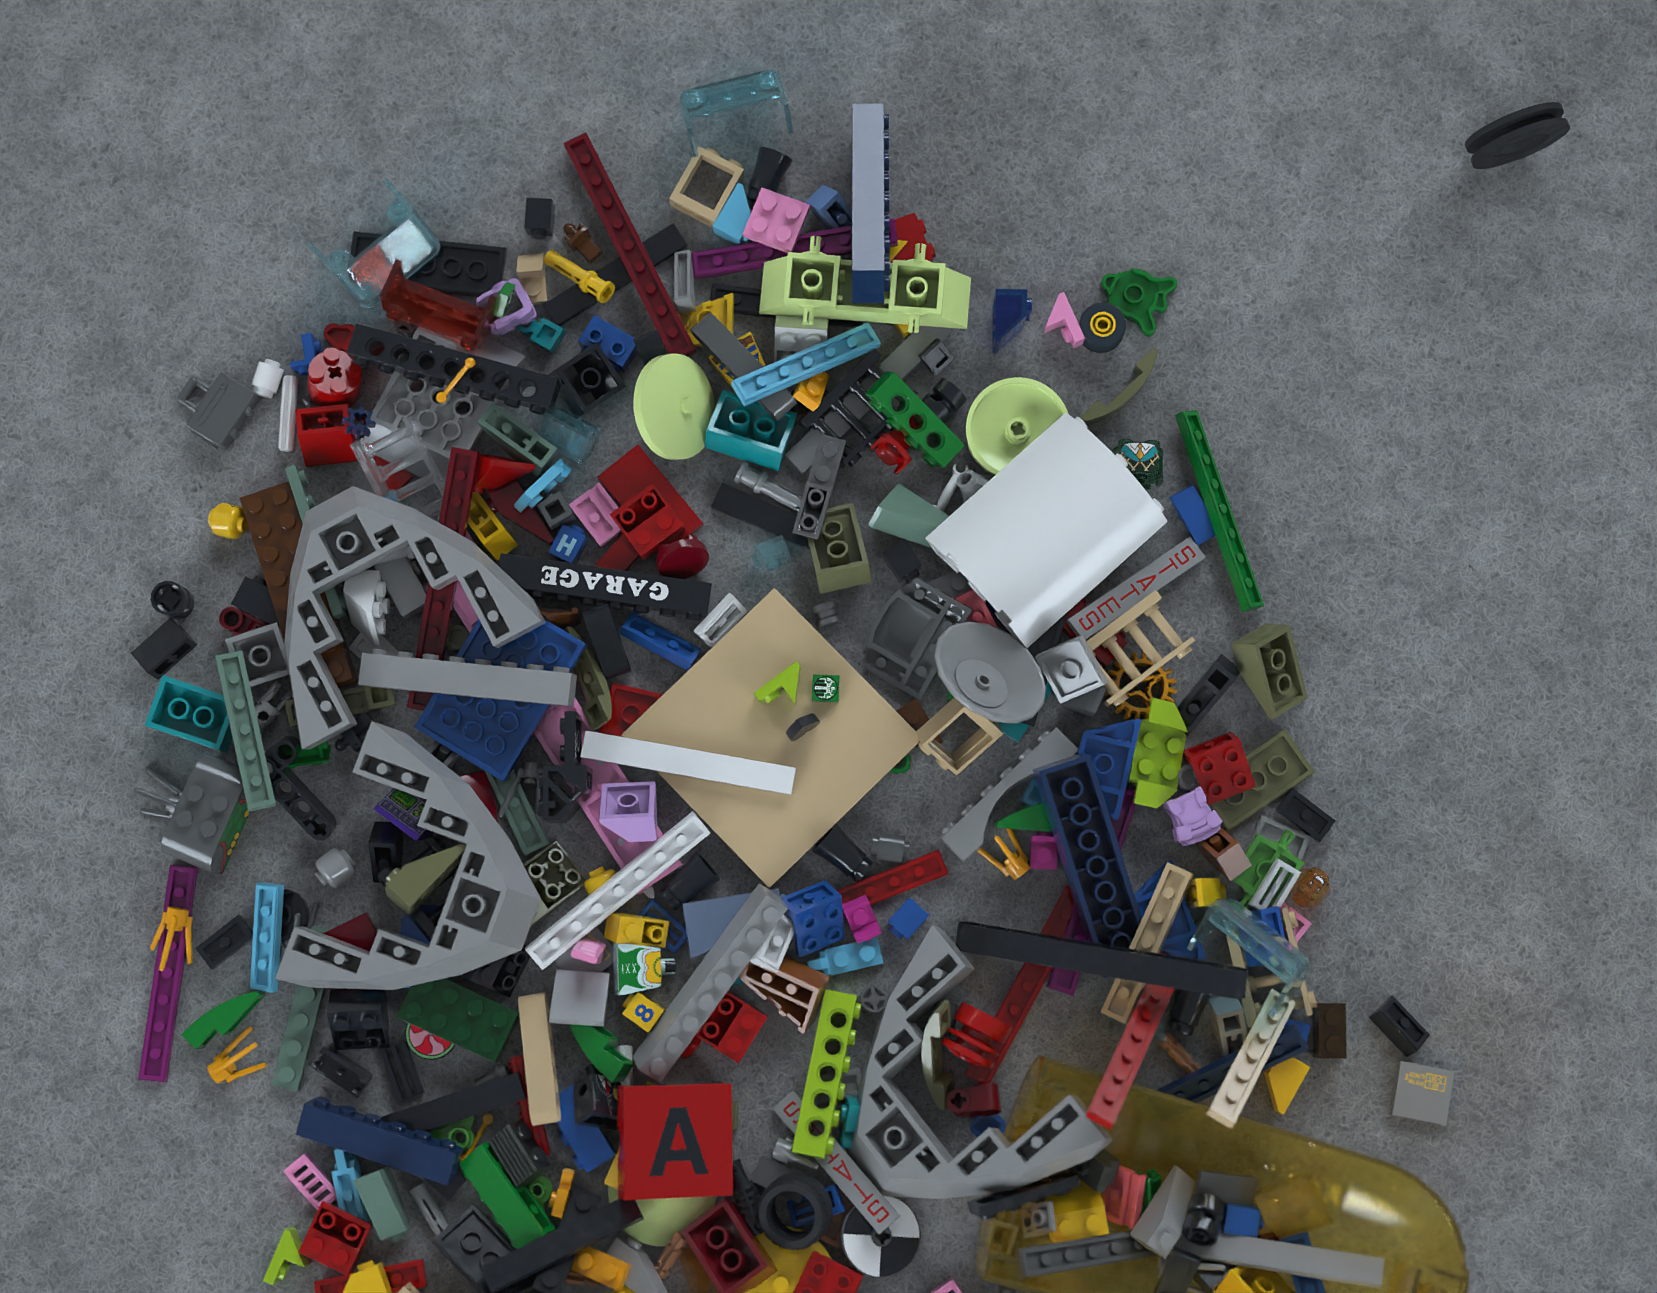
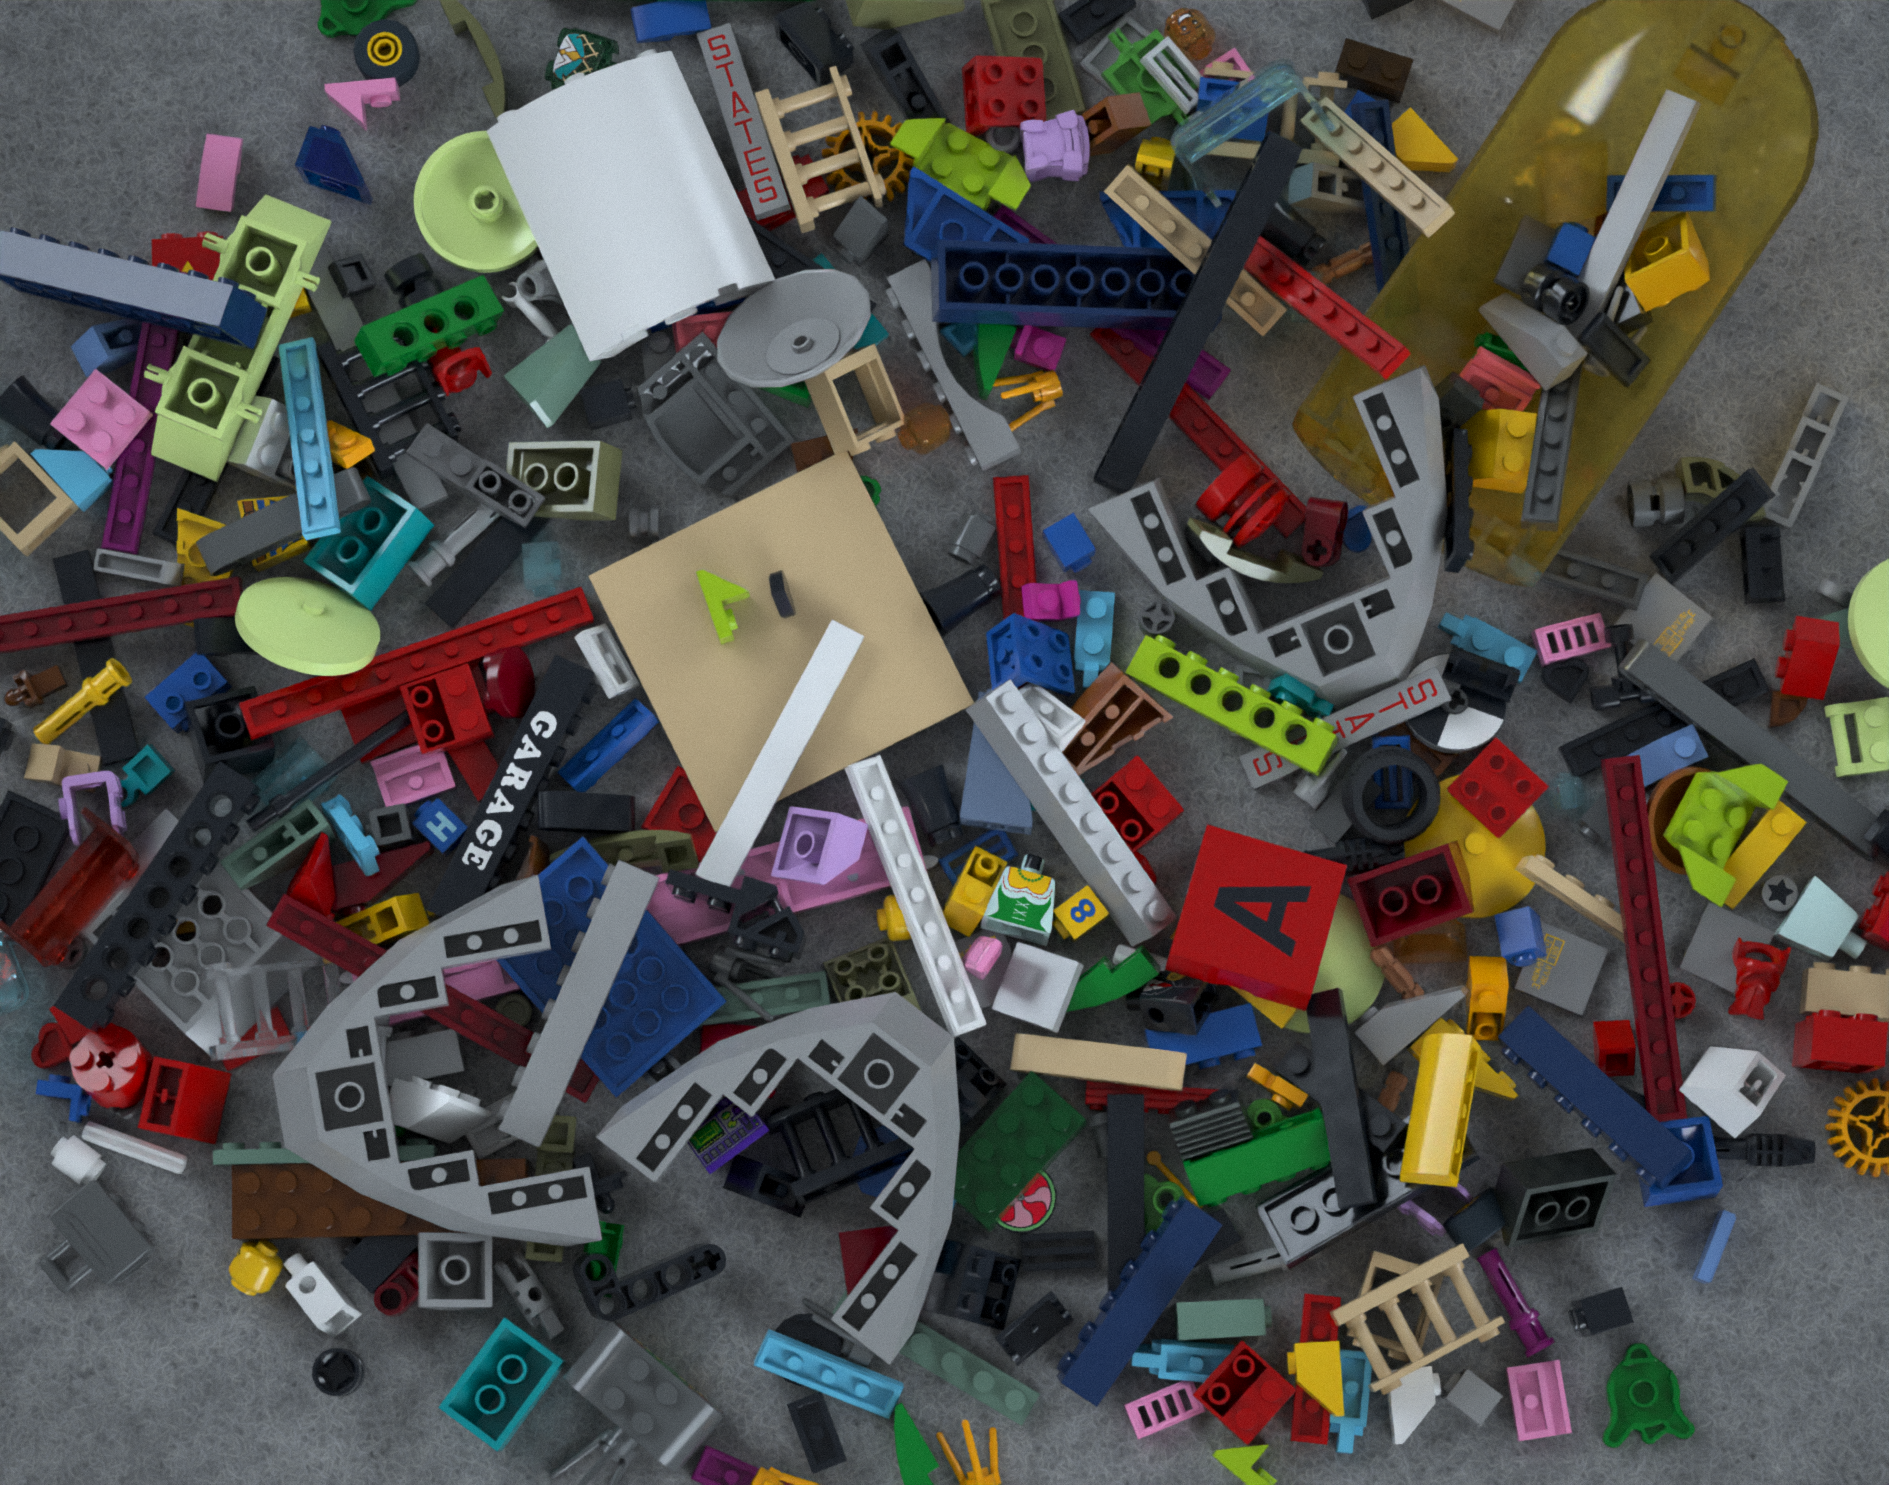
camera: 75 degrees left, 0 degrees up
(163, 649) = (399, 1404): black hinge -> none
(219, 570) = (327, 1303): none -> white torso
(245, 731) = (551, 1310): sand green plate -> none
(334, 868) = (766, 1259): light grey head -> none
(358, 429) = (191, 1054): dark blue gear -> none
(420, 878) = (827, 1151): olive slope -> none
(442, 396) = (193, 920): light orange hinge -> none
(504, 299) = (85, 798): green tile -> none
(545, 430) = (281, 804): none -> black bar
(601, 1267) = (1386, 1060): light orange plate -> none
(676, 492) = (416, 661): none -> red plate
(825, 688) = (742, 550): green tile -> none
(907, 1250) = (1481, 674): none -> black hinge
(931, 1249) = (1488, 642): none -> medium azure hinge
(957, 789) = (925, 428): none -> clear orange head
(979, 242) = (219, 172): none -> bright pink slope
(1038, 1220) = (1493, 493): light grey slope -> none
(1071, 669) = (821, 230): light grey tile -> none
(1211, 620) = (812, 41): none -> black slope

